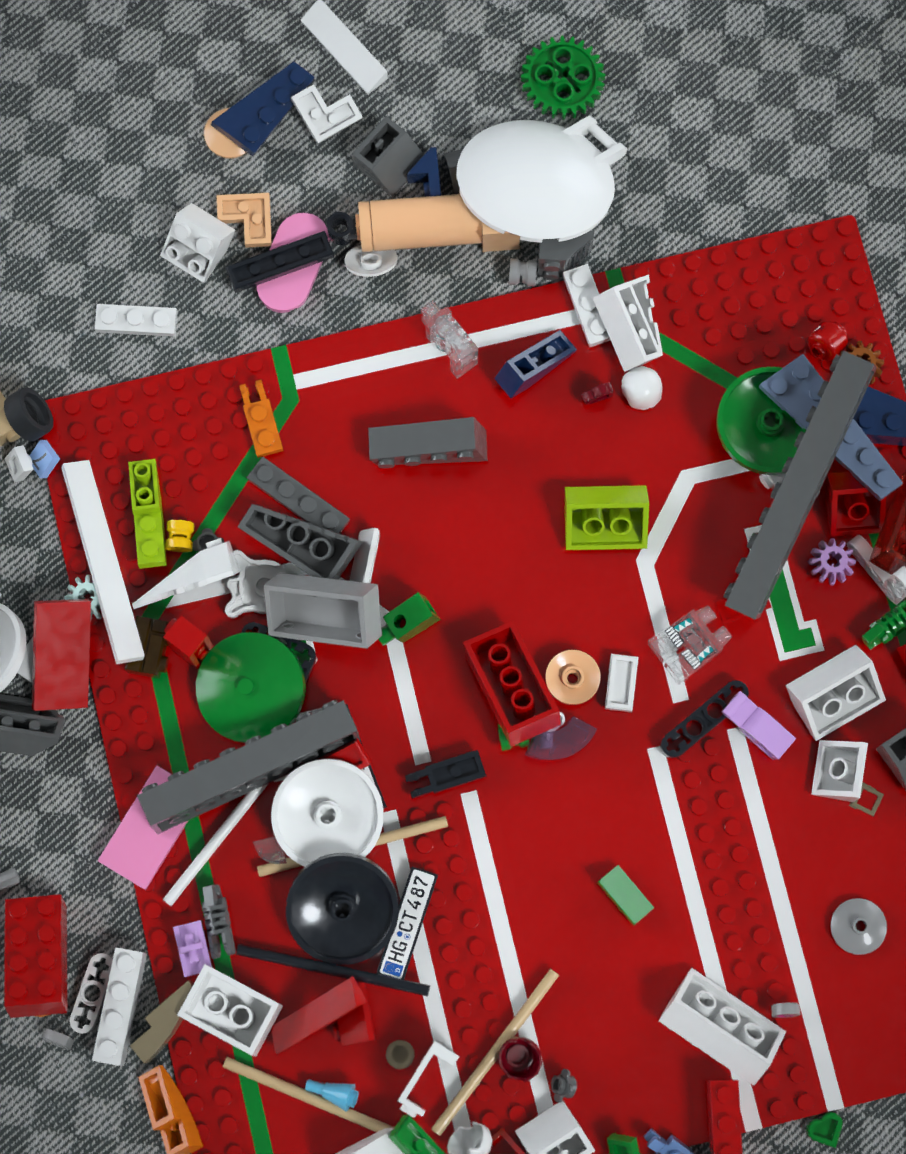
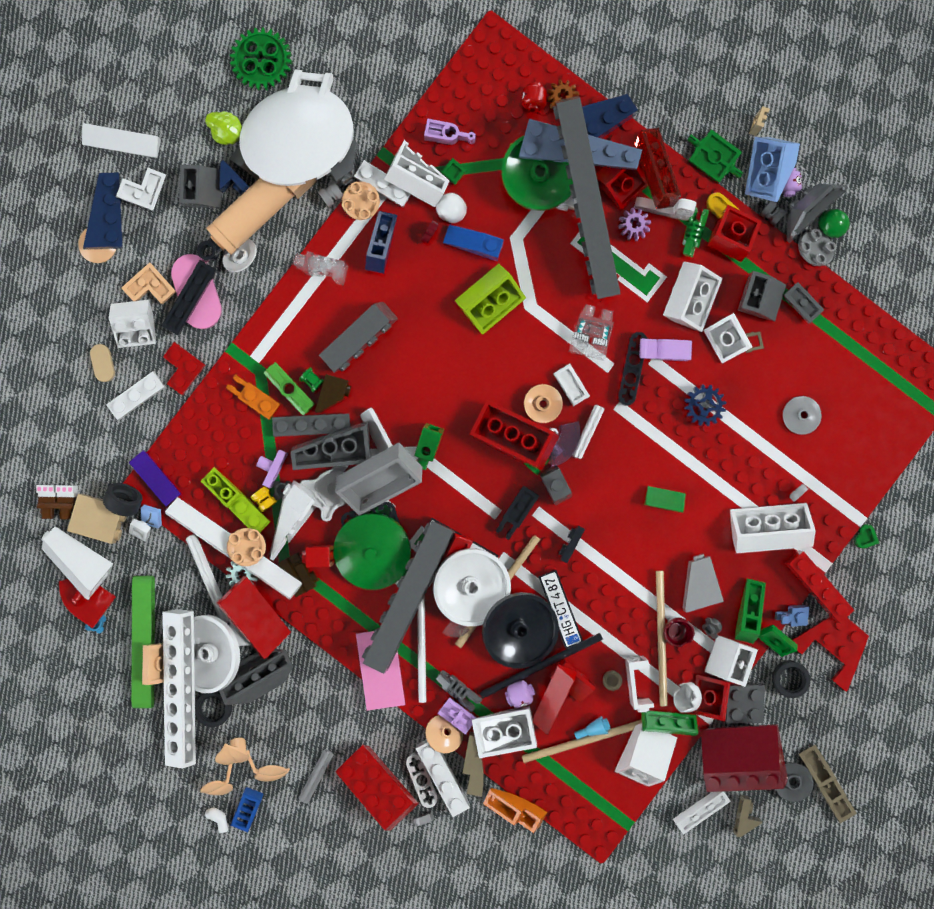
camera: 40 degrees left, 10 degrees up
(50, 567) = (206, 574): none -> white axle
(82, 421) = (155, 478): none -> dark purple tile
(117, 568) = (246, 547): none -> light nougat dish
(130, 258) = (102, 363): none -> tan tile
(149, 958) = (438, 740): none -> light nougat dish
(216, 335) = (188, 368): none -> red plate
(218, 510) = (272, 467): none -> lavender tile
(282, 982) = (520, 694): none -> lavender head
(306, 424) = (280, 380): none -> bright green piece
(338, 450) = (311, 379): none -> green bush
(349, 481) = (332, 392): none -> dark brown slope
(465, 116) = (224, 127): none -> lime hair
(489, 853) = (567, 550): none -> black plate
(514, 779) = (555, 485): none -> dark grey torso
(549, 303) = (360, 200): none -> light nougat dish
(590, 1025) = (701, 584): none -> light grey slope
(598, 749) = (588, 431): none -> white axle
(622, 1103) = (750, 611): none -> green slope
(638, 443) = (474, 242): none -> blue slope
(676, 351) = (453, 171): none -> green tile
(691, 294) = (436, 131): none -> lavender piece
(747, 813) = (707, 396): none -> dark blue gear

